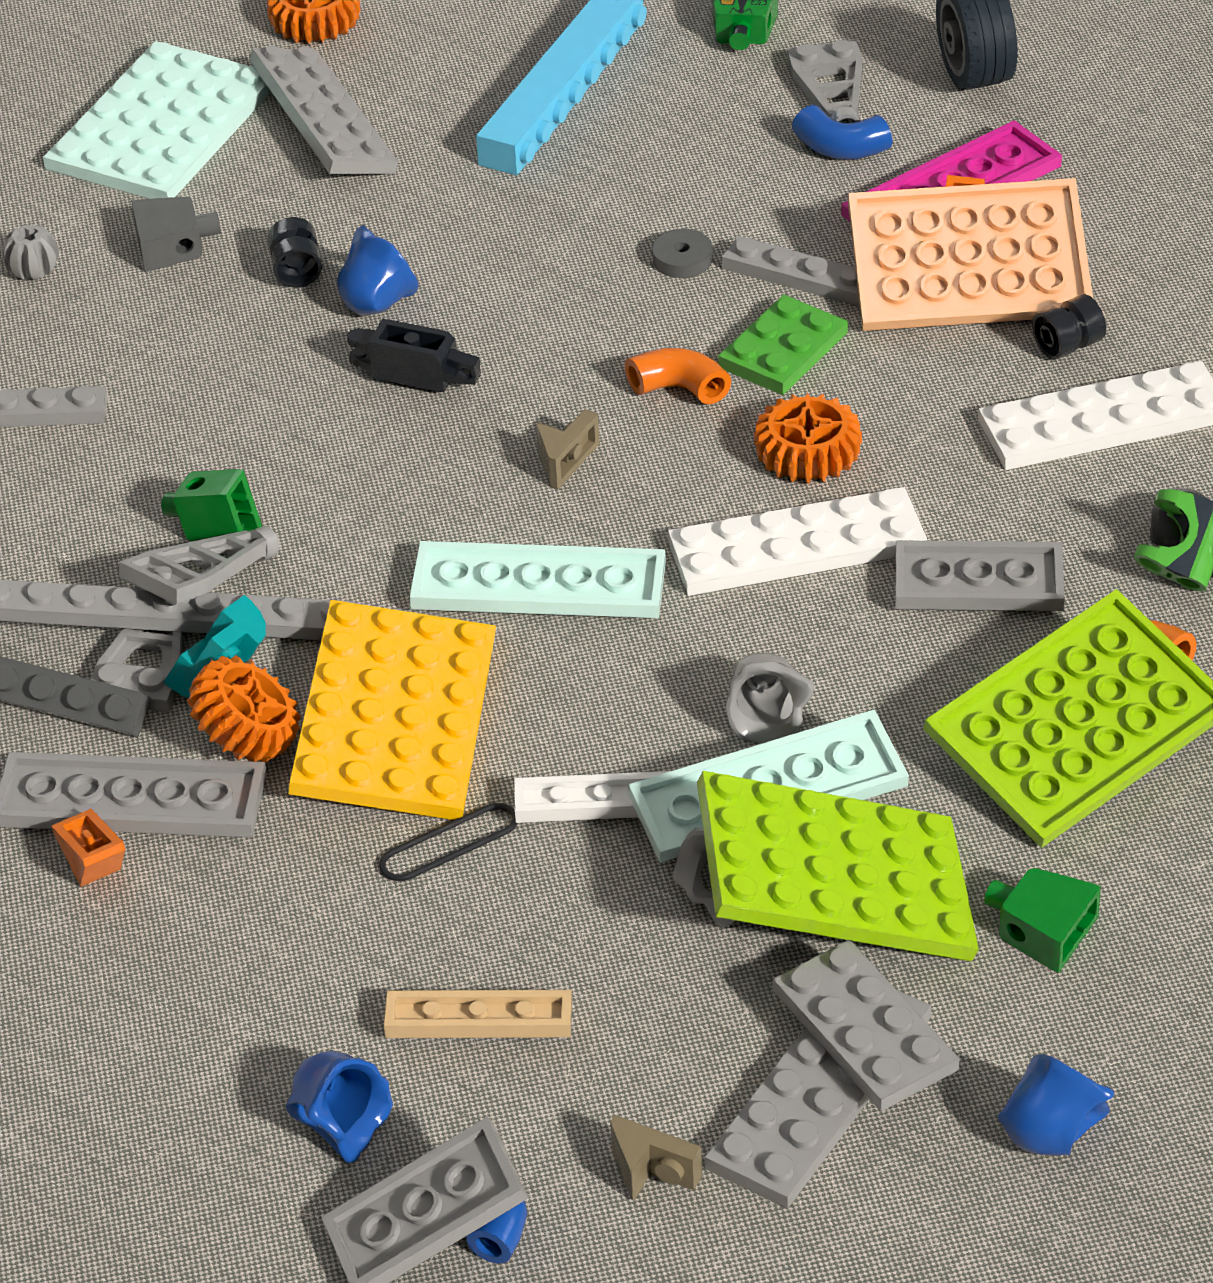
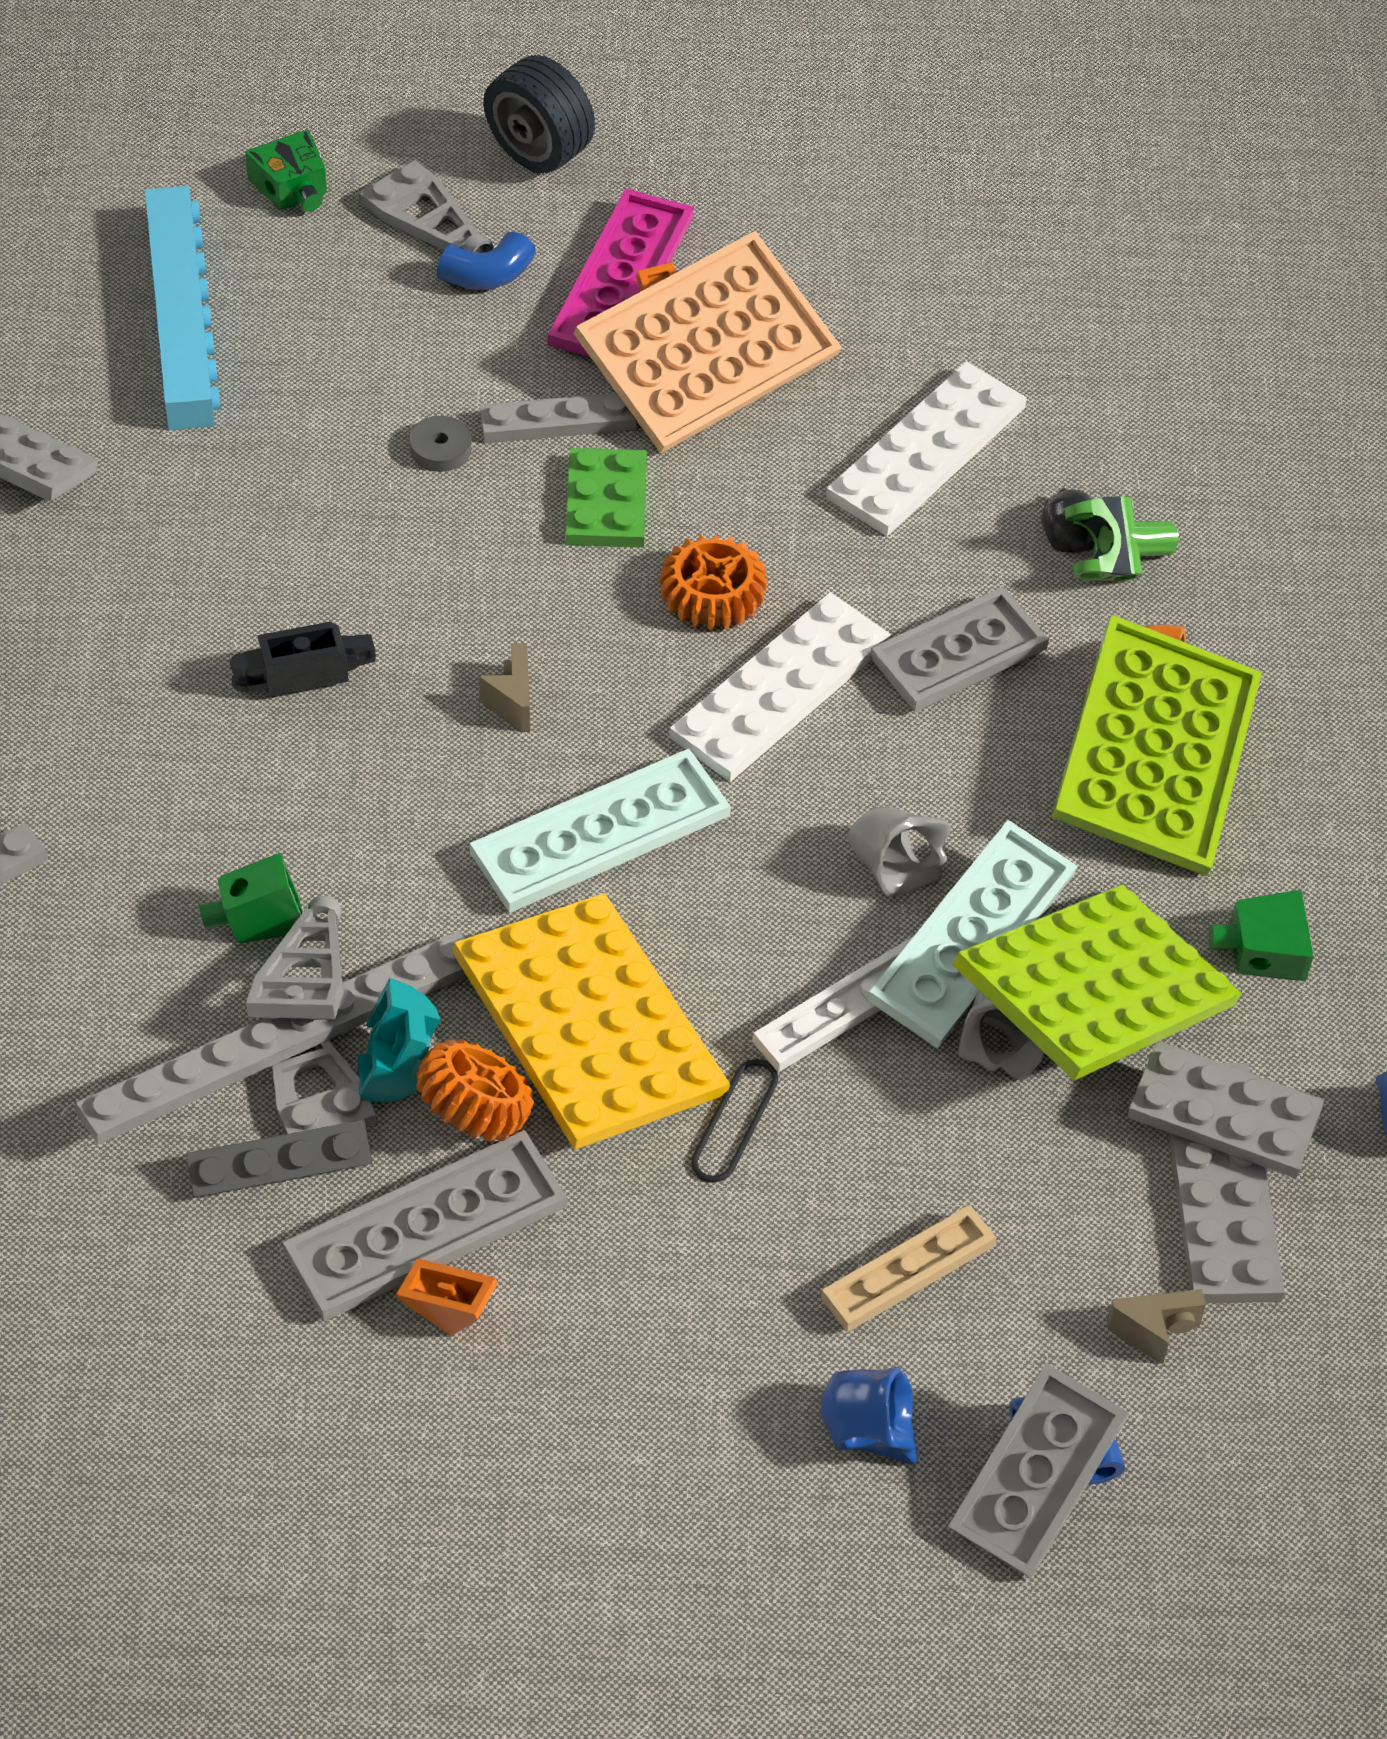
camera: 40 degrees left, 10 degrees up
(294, 252) = (90, 599): black wheel -> none
(374, 275) = (193, 591): blue piece -> none
(678, 369) = (545, 563): orange cylinder -> none
(1072, 326) = (840, 376): black wheel -> none

